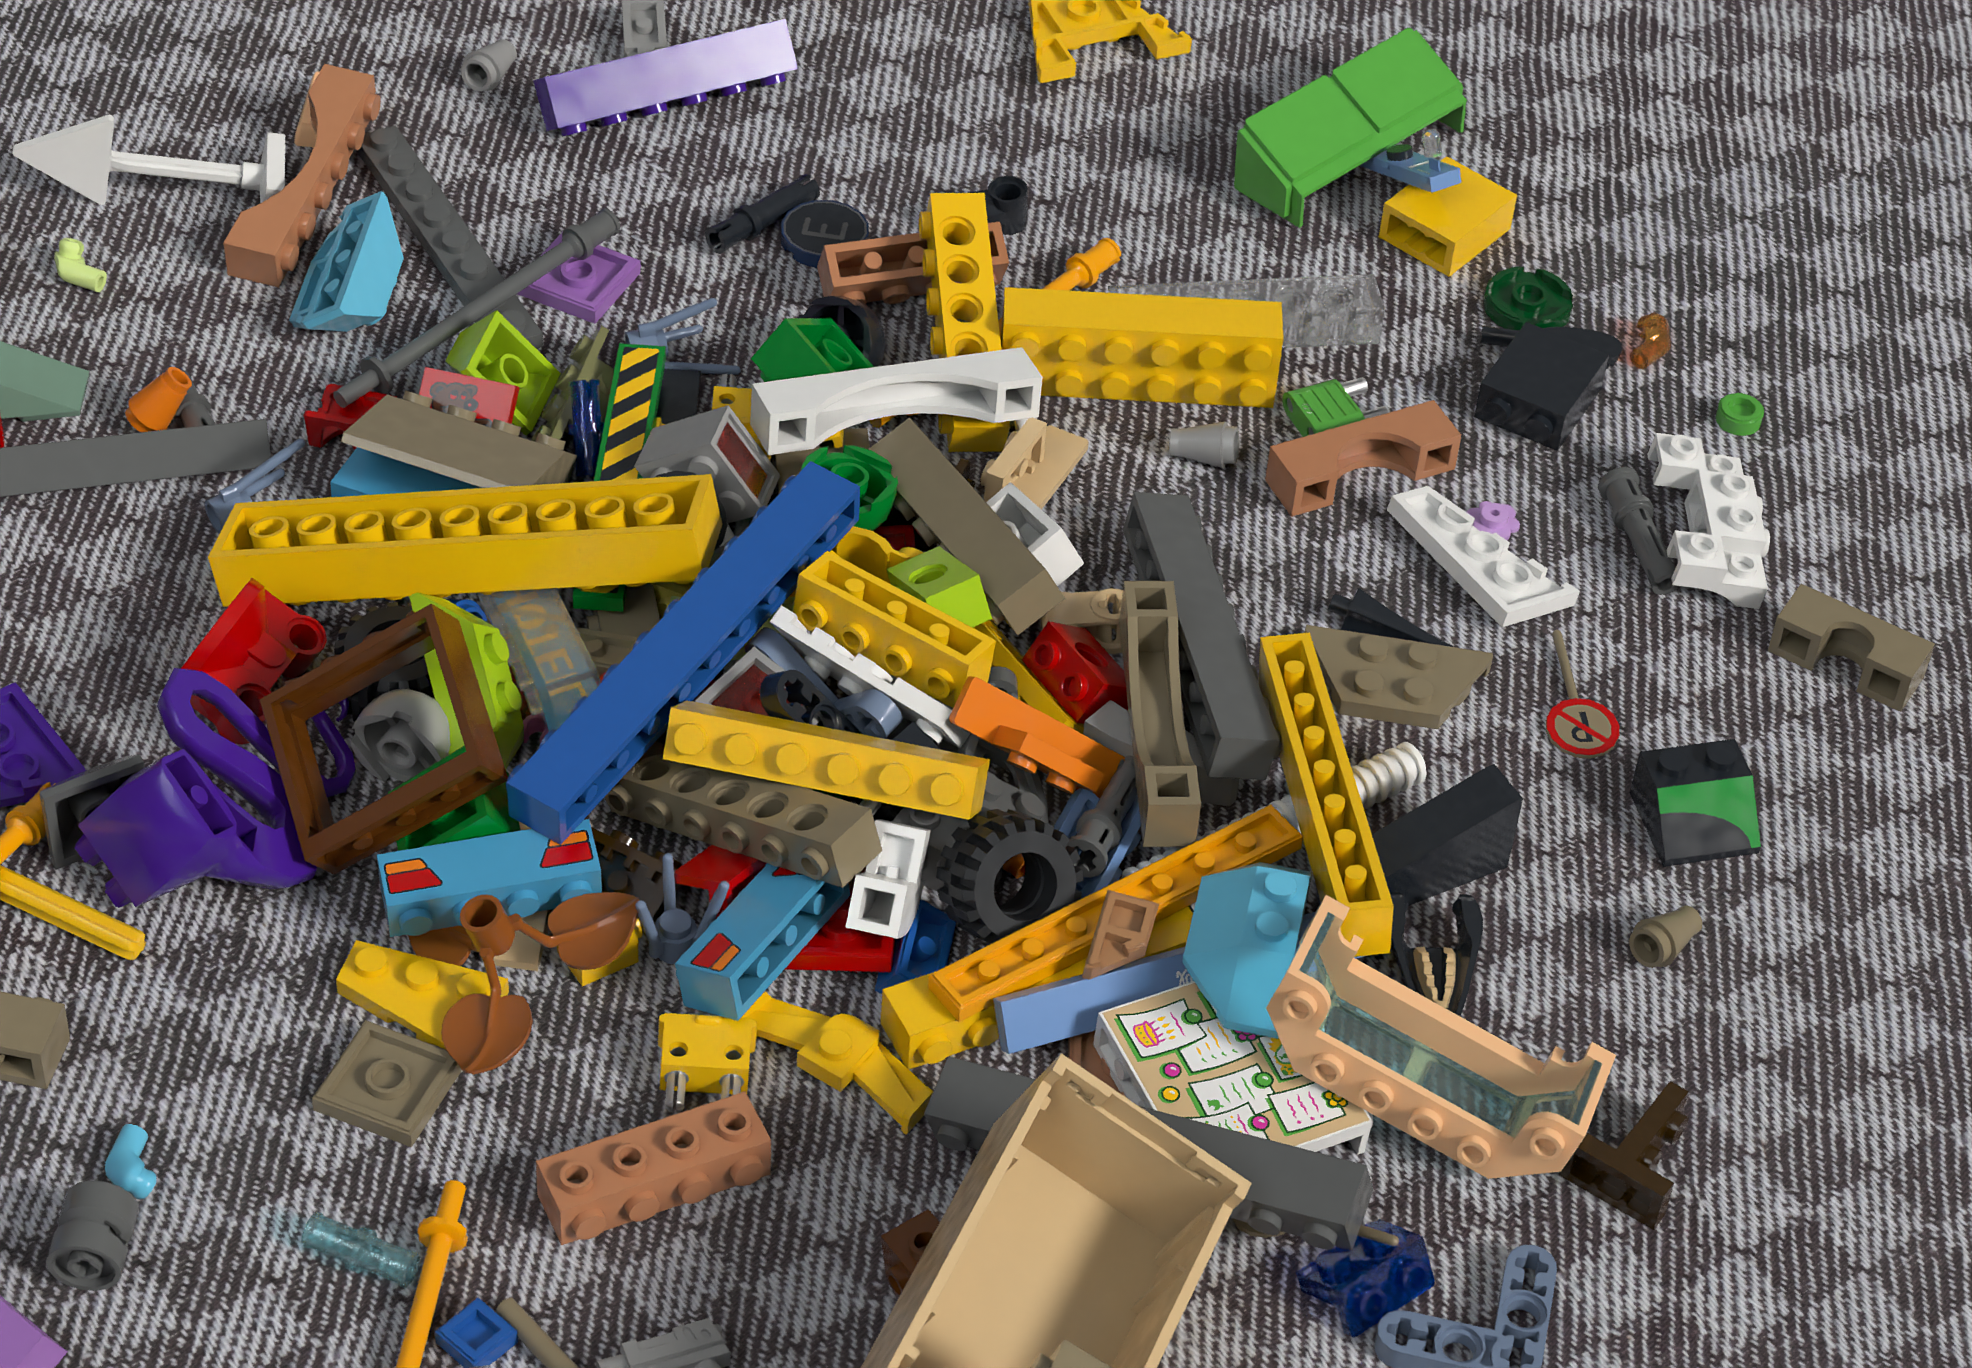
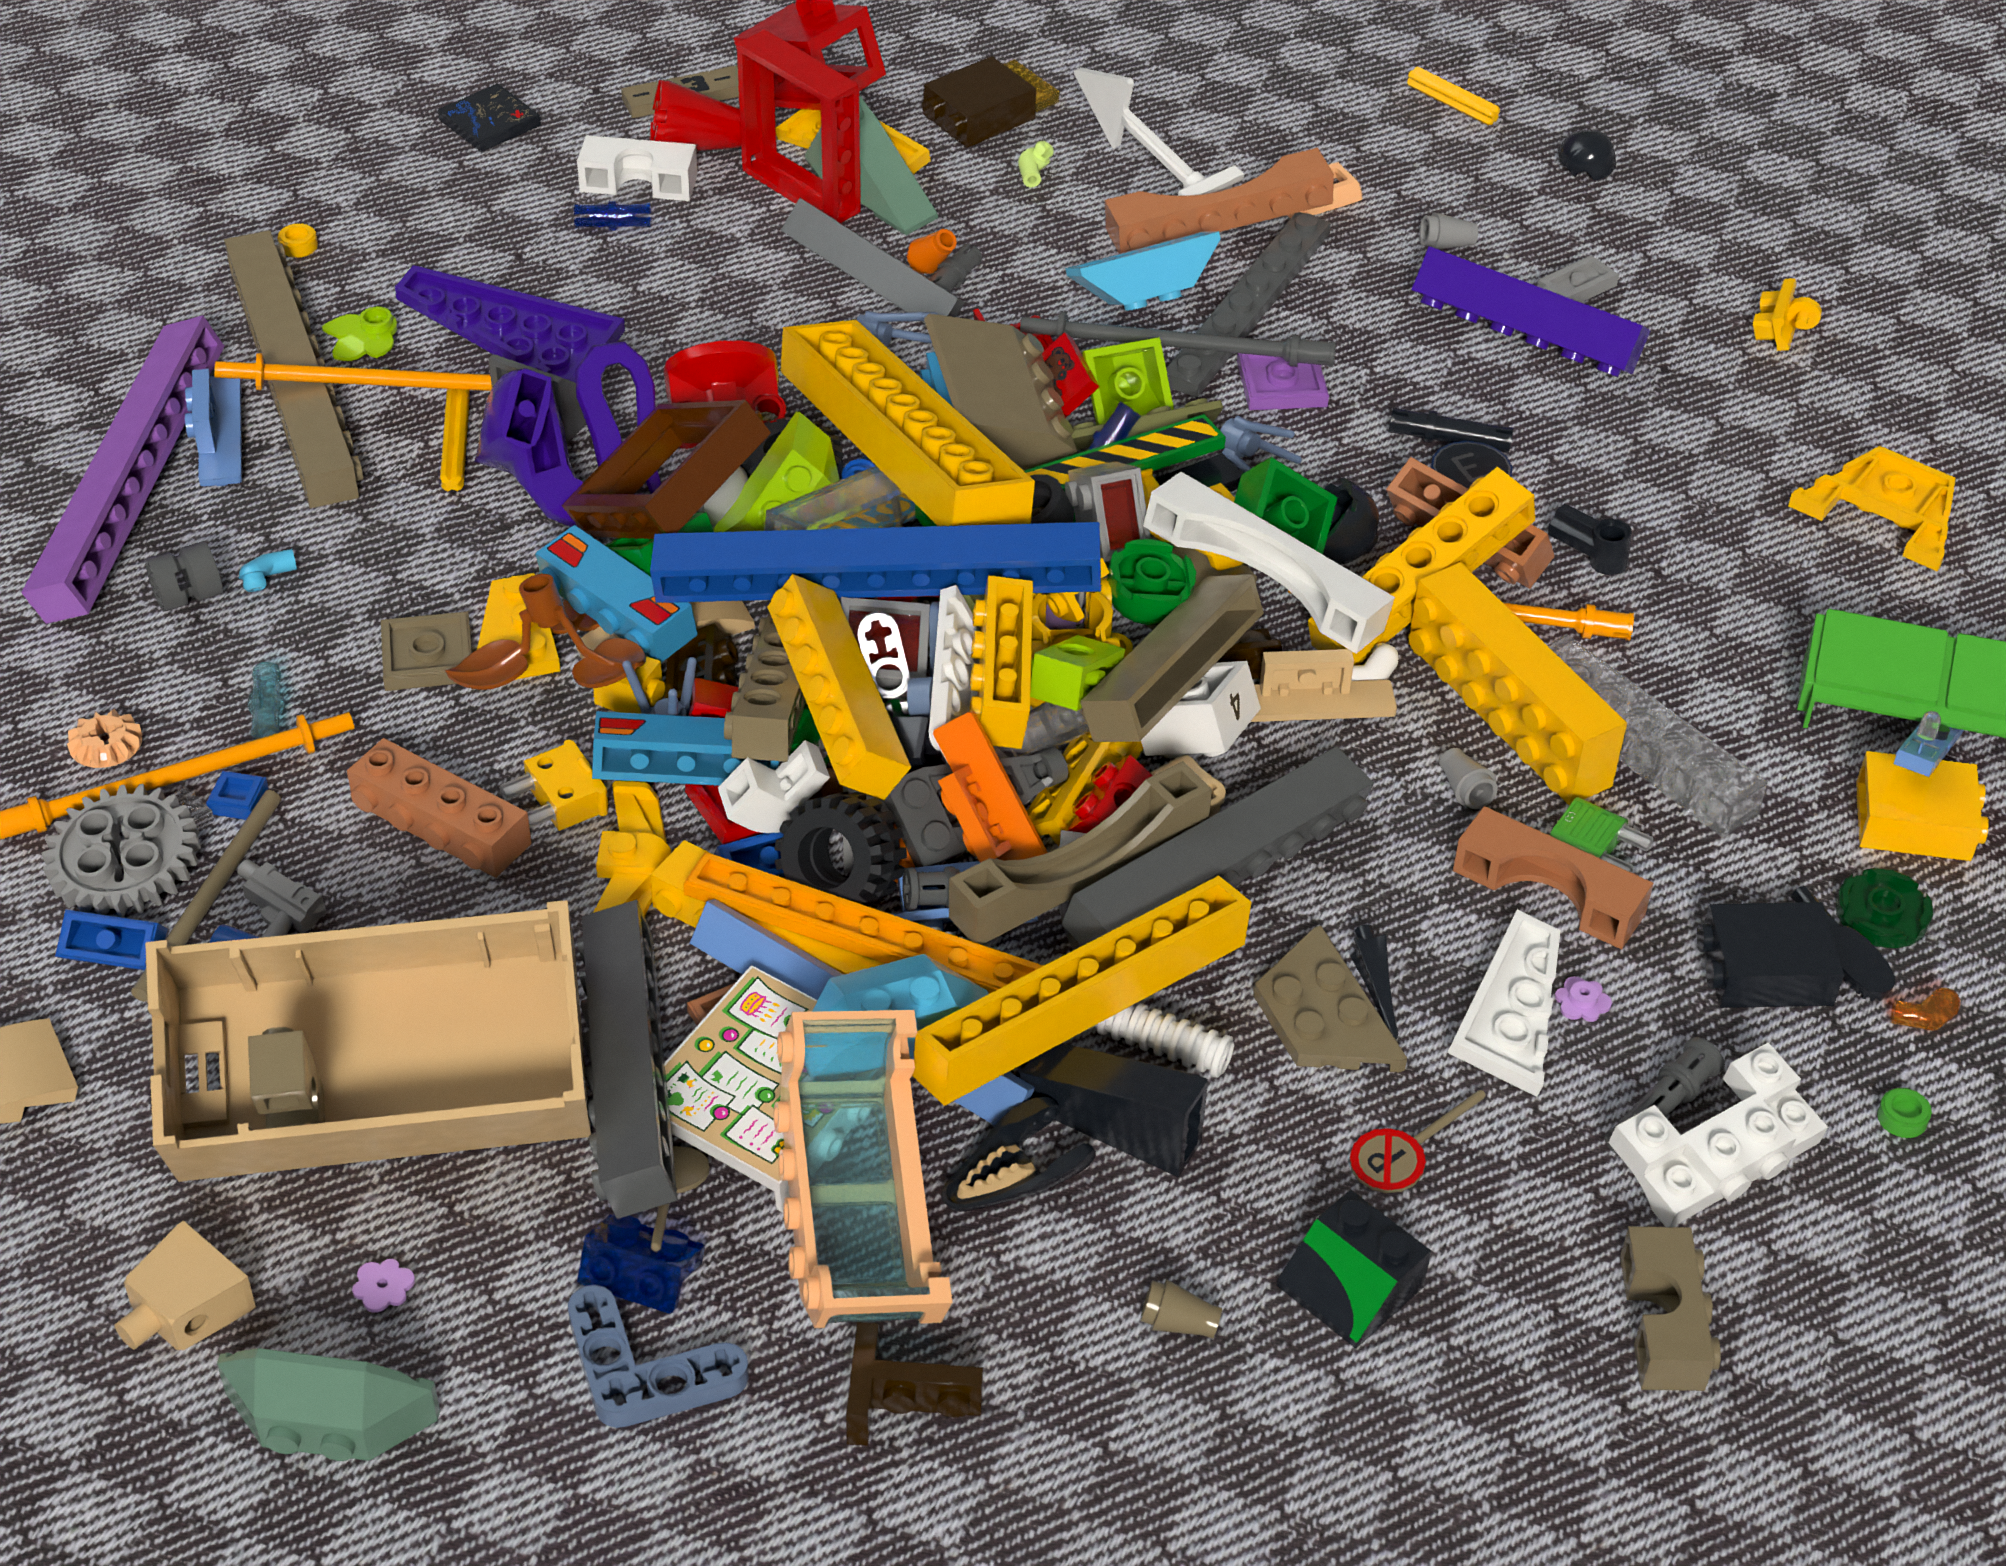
camera: 60 degrees right, 0 degrees up
(1120, 933) = (828, 935): medium nougat tile -> none

